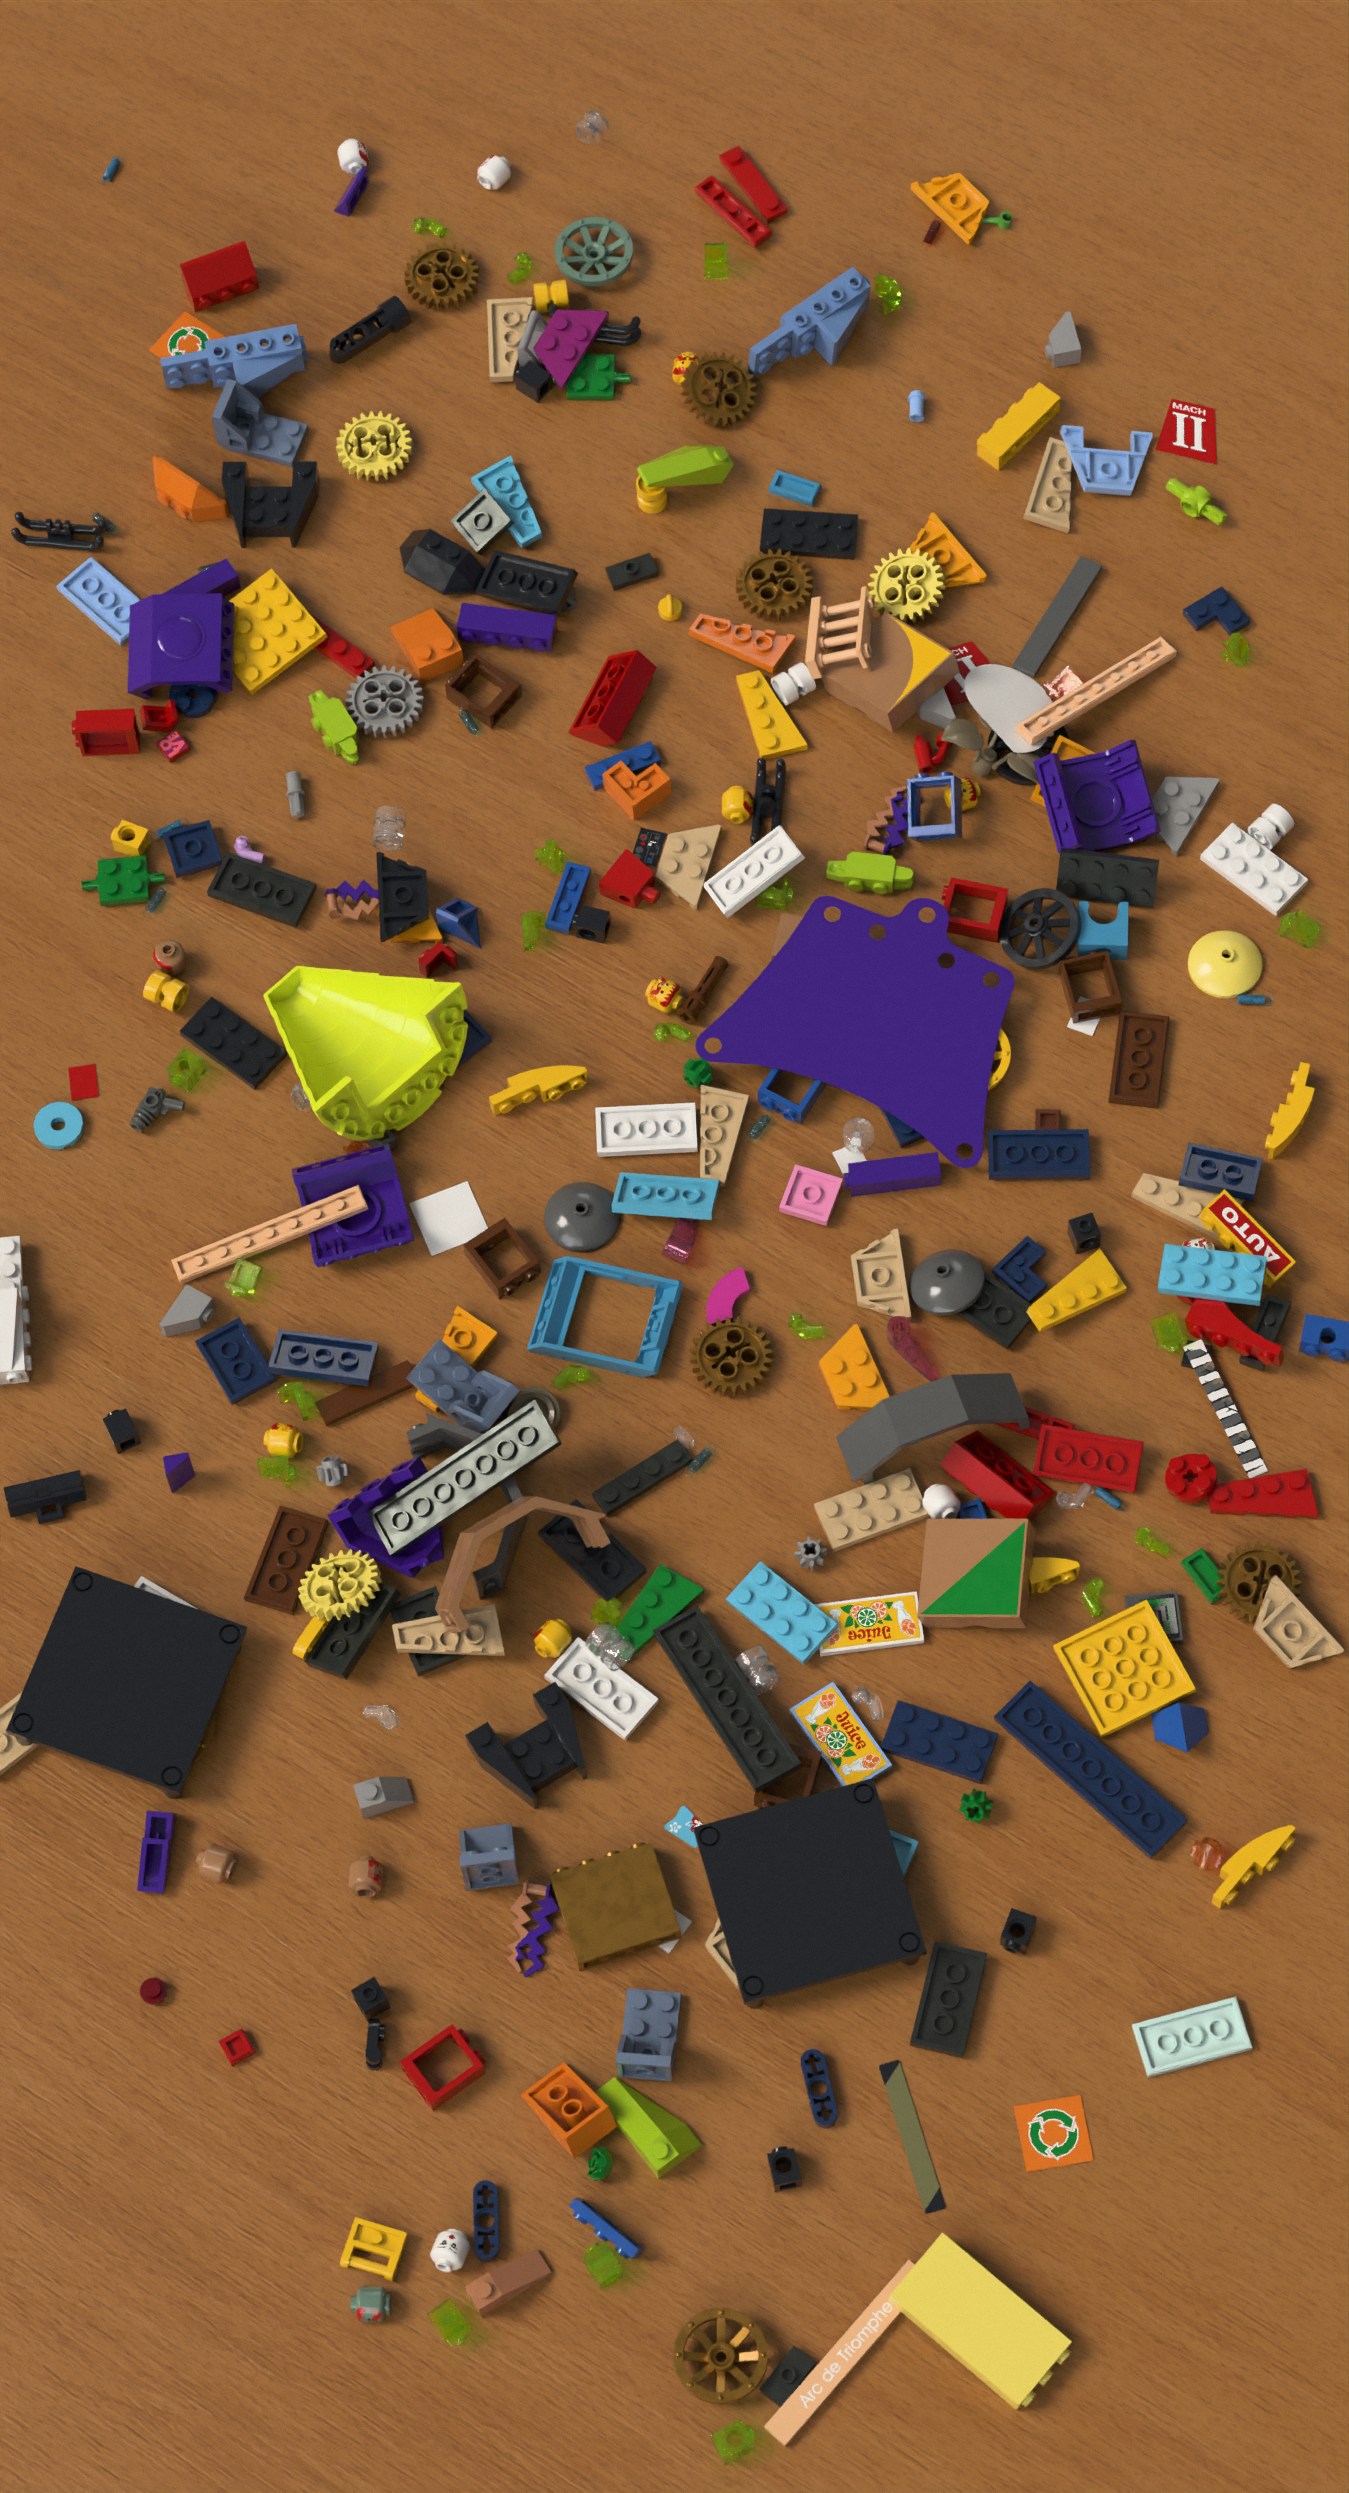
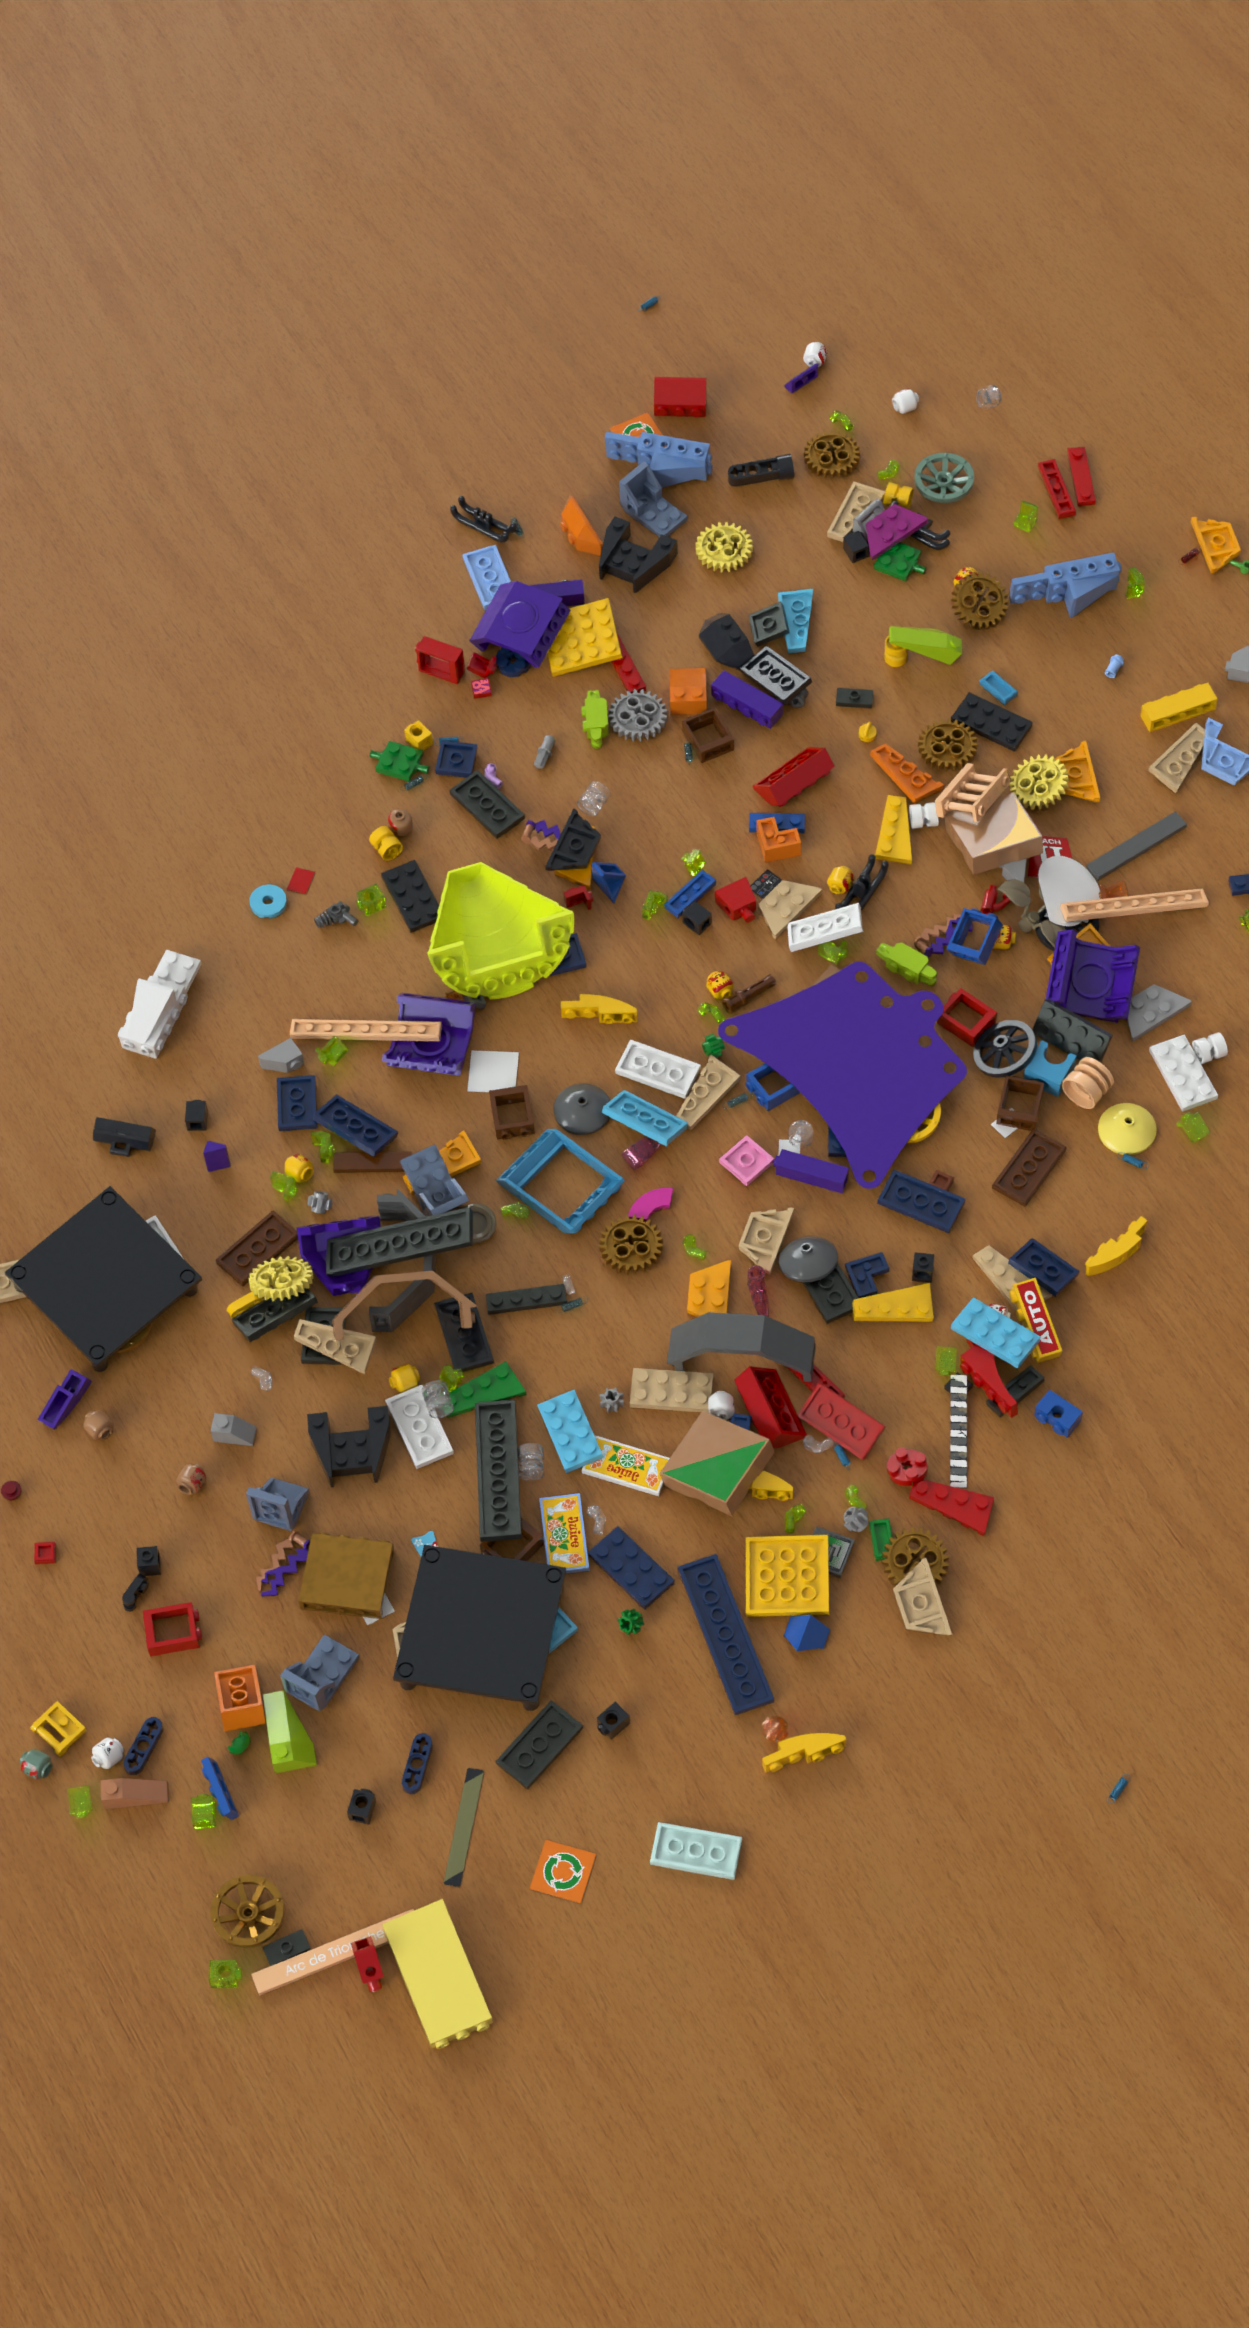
camera: 25 degrees right, 5 degrees down
(894, 2346) = (366, 1957): none -> red torso
(1157, 929) = (1087, 1083): none -> light nougat wheel
(1166, 1566) = (855, 1519): none -> light grey gear

